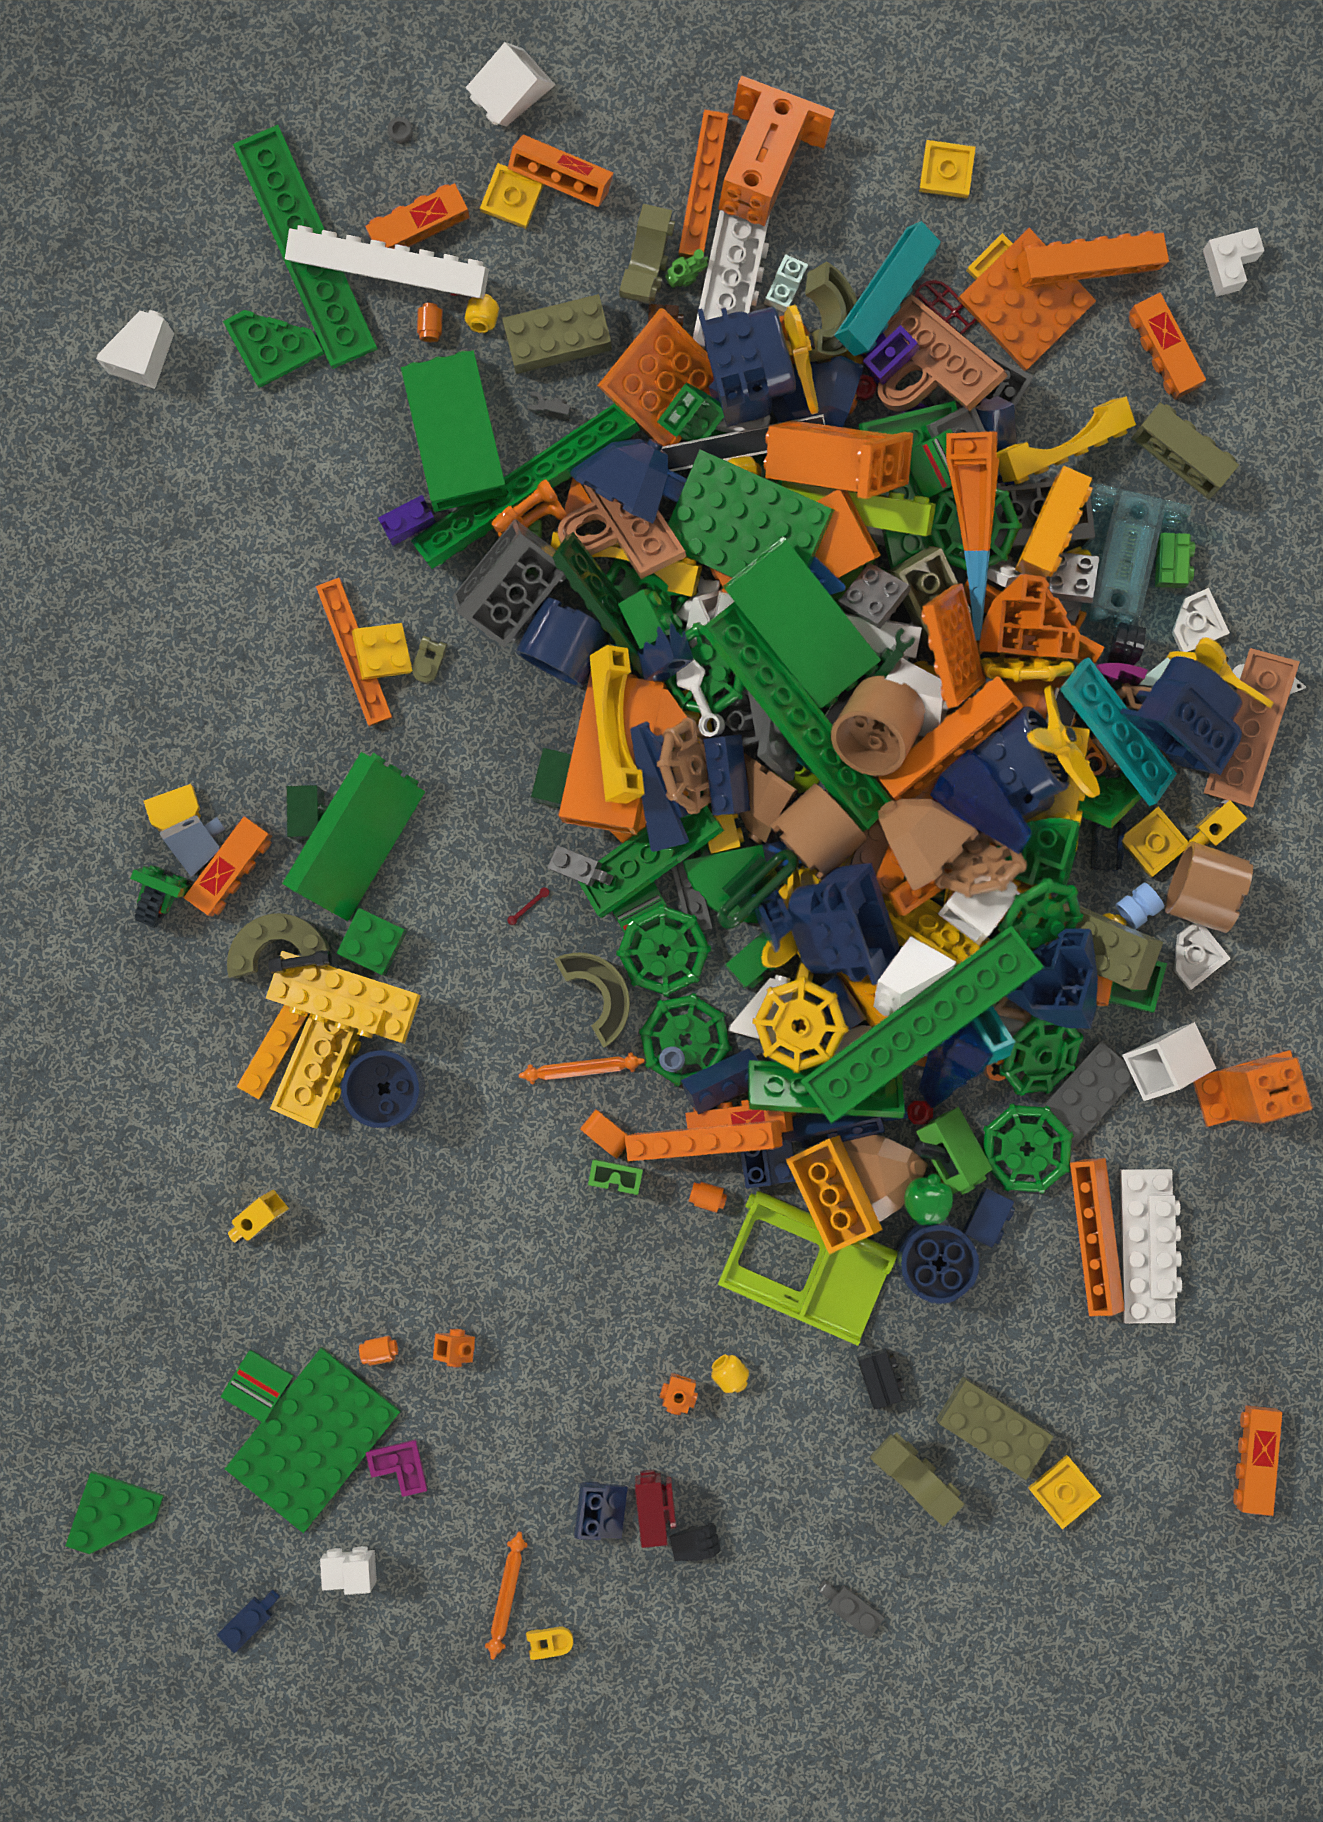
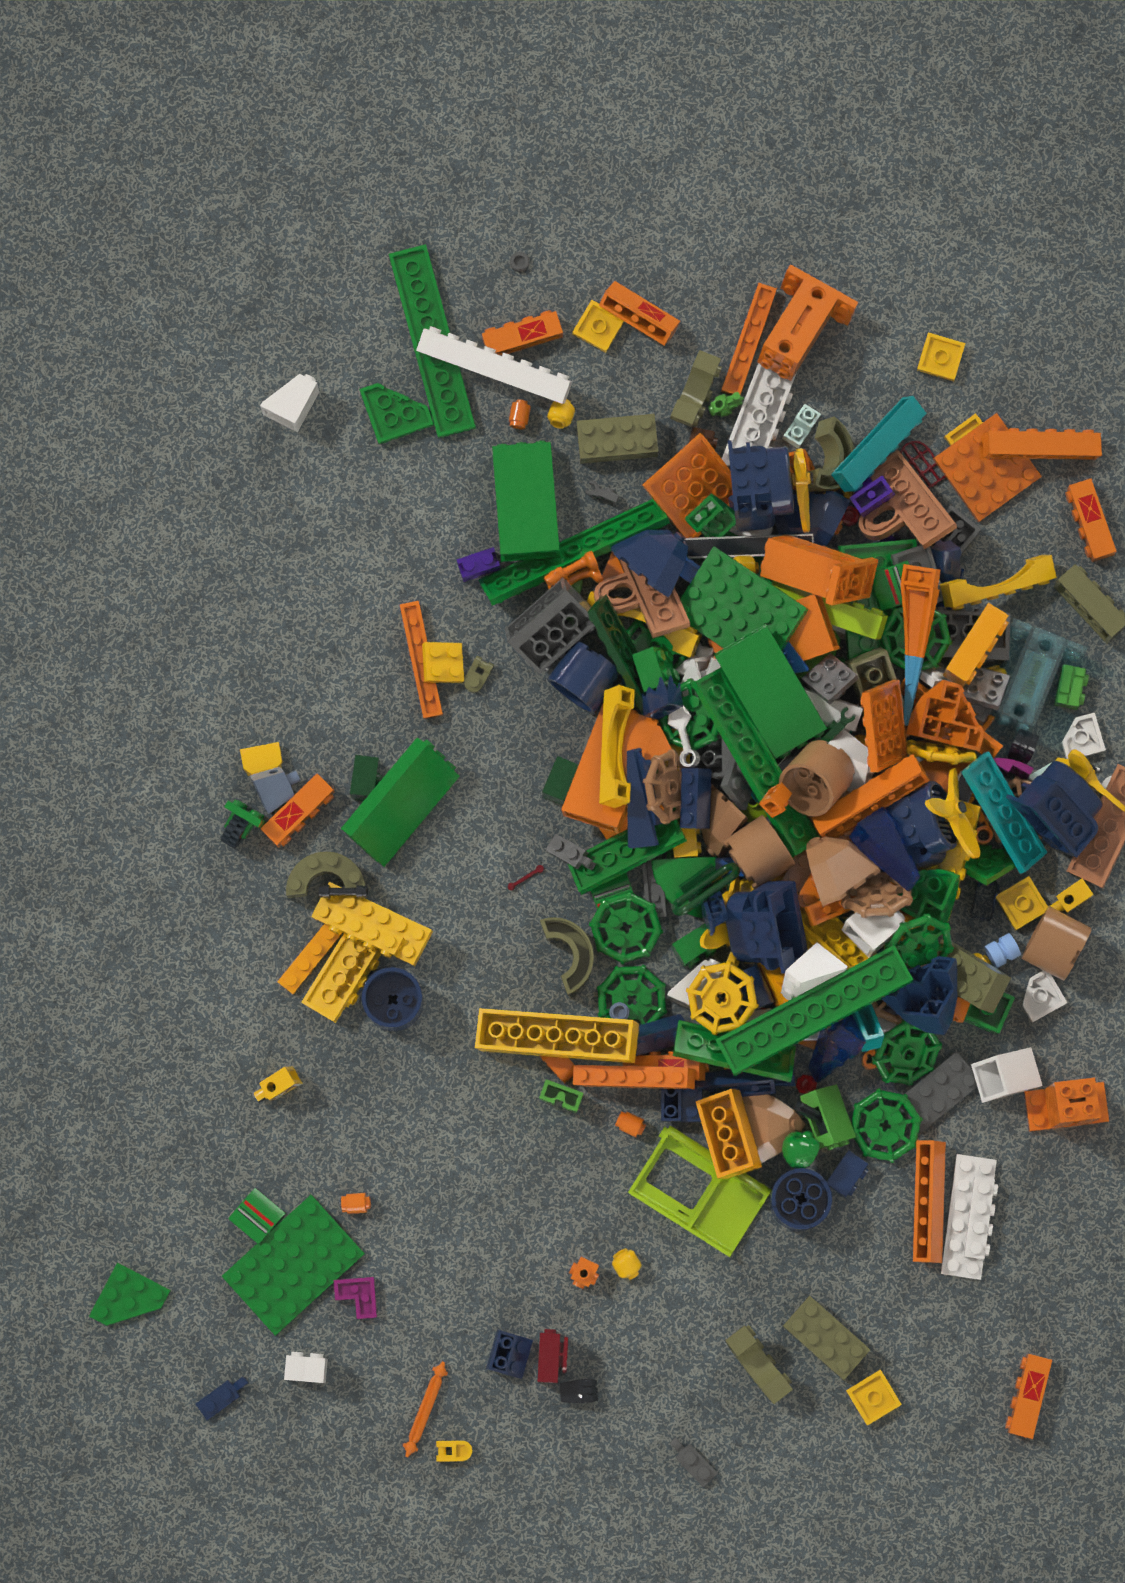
camera: 10 degrees right, 5 degrees down
(371, 942) = (400, 885): green brick -> none
(454, 1347) = (415, 1209): orange brick -> none
(508, 84) = (610, 240): white slope -> none
(581, 1068) = (562, 1009): orange wheel -> none
(598, 1103) = (557, 1035): none -> yellow brick
(831, 762) = (776, 800): none -> orange brick
(880, 1378) = (743, 1286): black brick -> none

